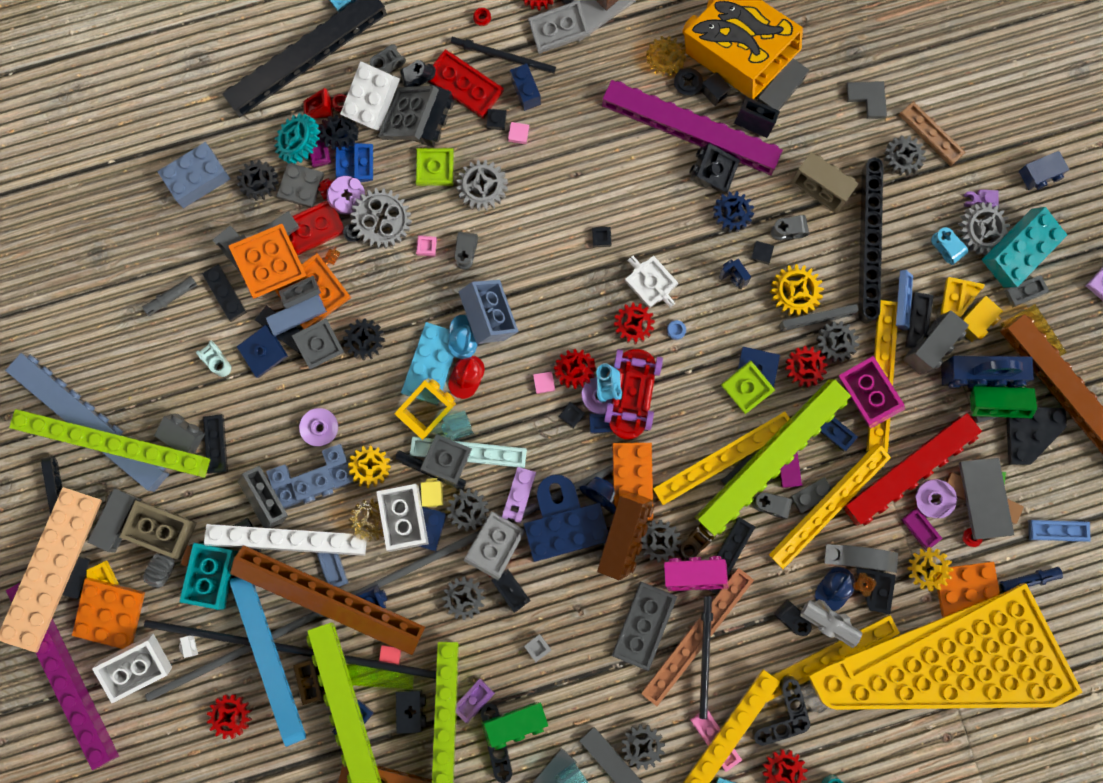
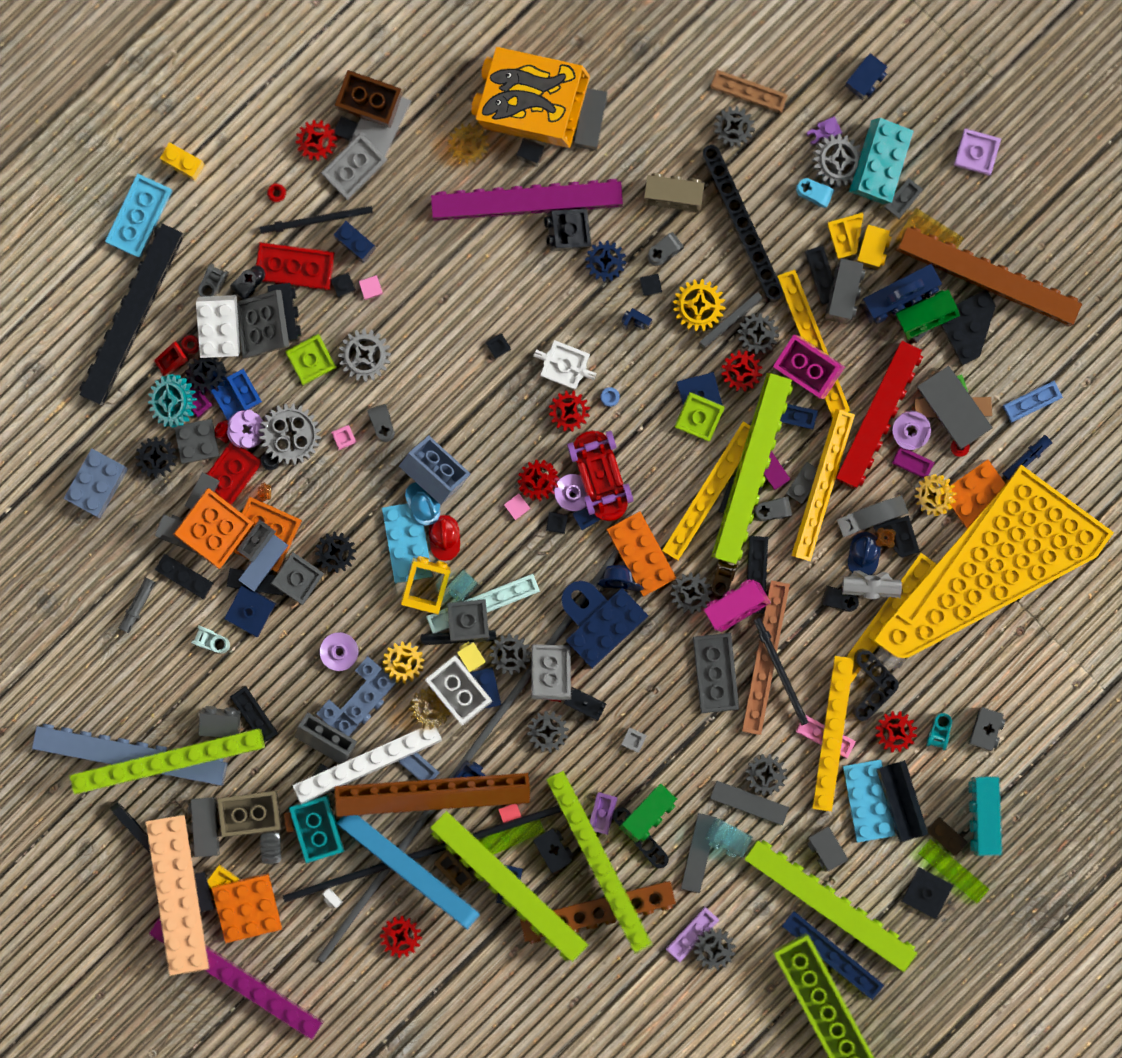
camera: 25 degrees left, 5 degrees up
(132, 668) = (296, 940): white brick -> none
(519, 494) = (547, 616): lavender plate -> none
(608, 386) = (576, 482): medium azure piece -> none
(625, 536) = (659, 604): reddish brown brick -> none
(688, 74) = (497, 149): black gear -> none
(756, 117) = (581, 161): black brick -> none
(870, 92) = (676, 81): dark grey tile -> none
(904, 300) = (799, 264): medium blue tile -> none

